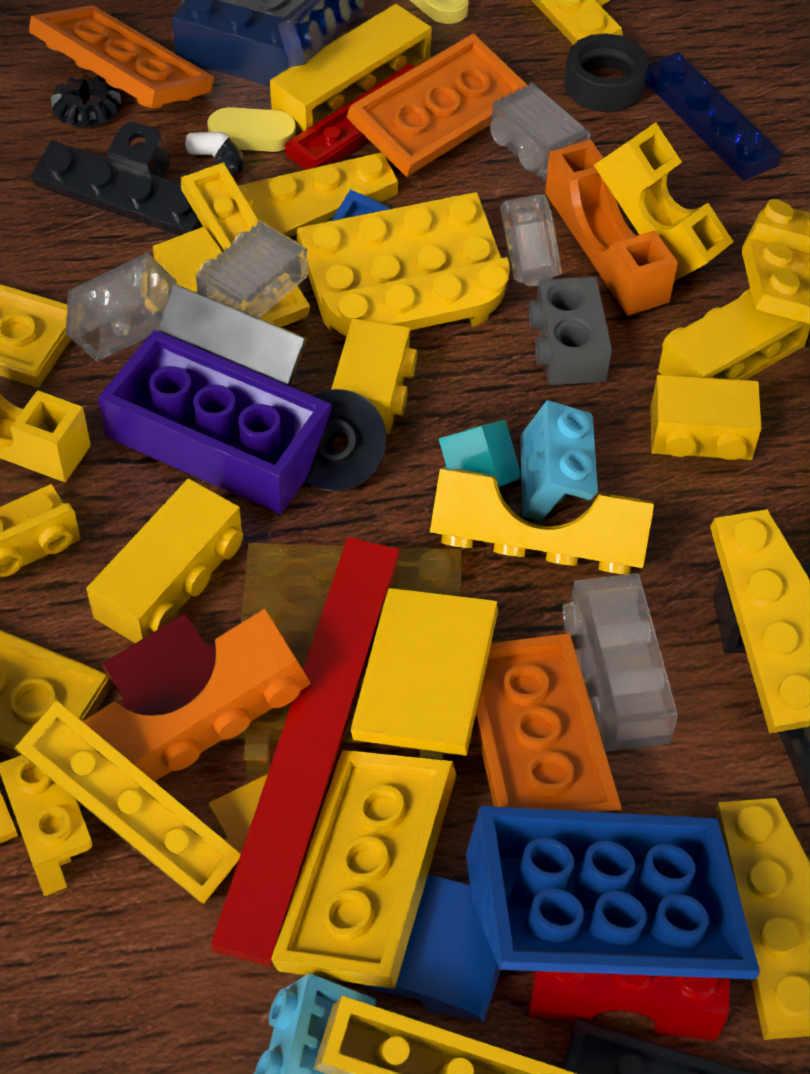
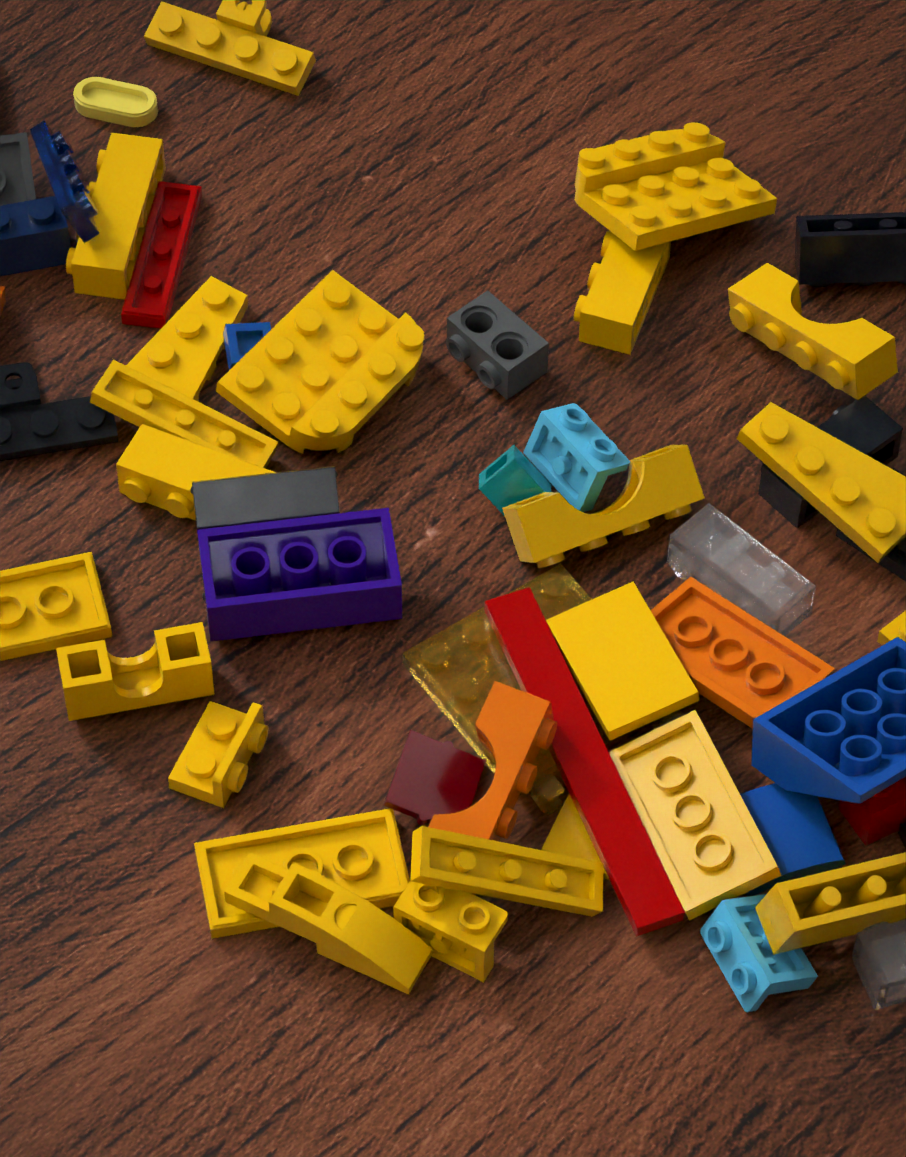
camera: 35 degrees left, 0 degrees up
(118, 306) = (139, 528): clear brick -> none
(166, 562) = (361, 703): yellow brick -> none
(219, 146) = (72, 347): arm -> none
(254, 128) = (77, 316): light yellow tile -> none
(254, 270) = (233, 435): clear brick -> none
(366, 448) = (424, 530): black dish -> none
(375, 366) = (378, 467): yellow brick -> none
(435, 104) = (225, 206): orange plate -> none
(531, 239) = (411, 285): clear brick -> none
(533, 126) = (325, 187): clear brick -> none
(610, 52) = (331, 77): black tyre -> none
(634, 267) = (412, 224): orange arch -> none
(638, 182) = (518, 220): yellow arch -> none
(705, 417) = (651, 358): yellow brick -> none
(712, 116) = (442, 94): clear blue plate -> none

